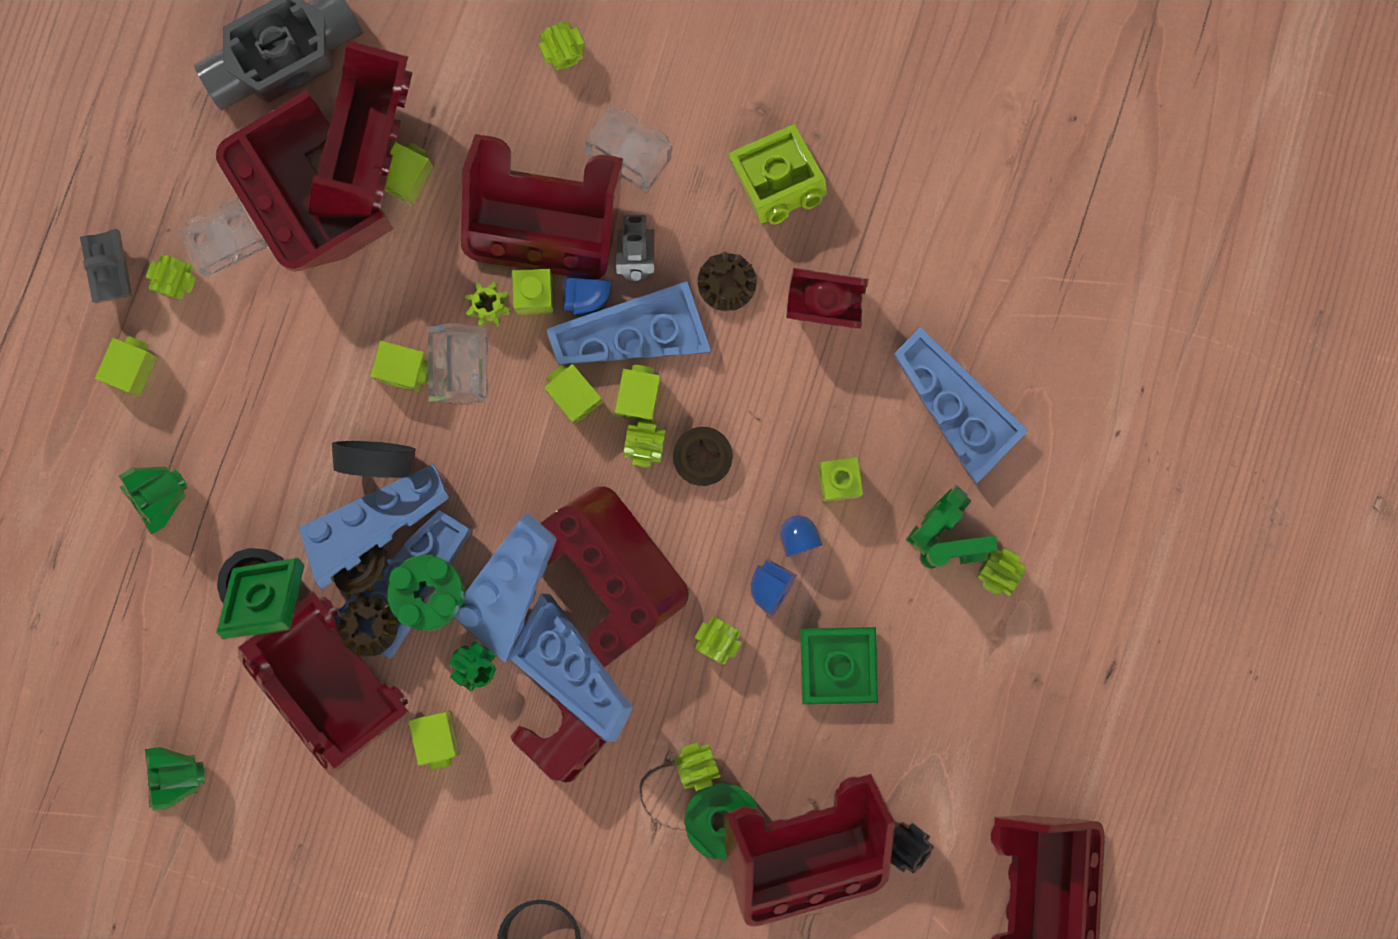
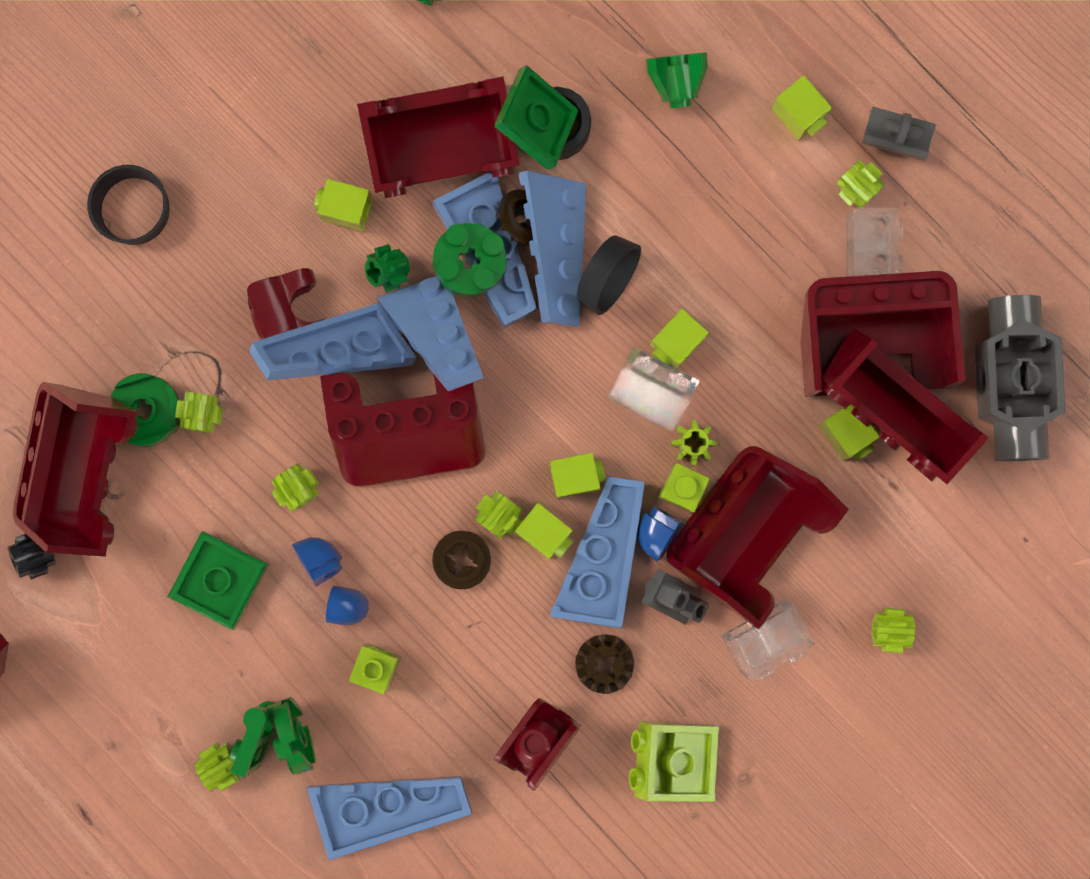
camera: 120 degrees right, 0 degrees up
(384, 627) = (456, 208): dark brown gear -> none

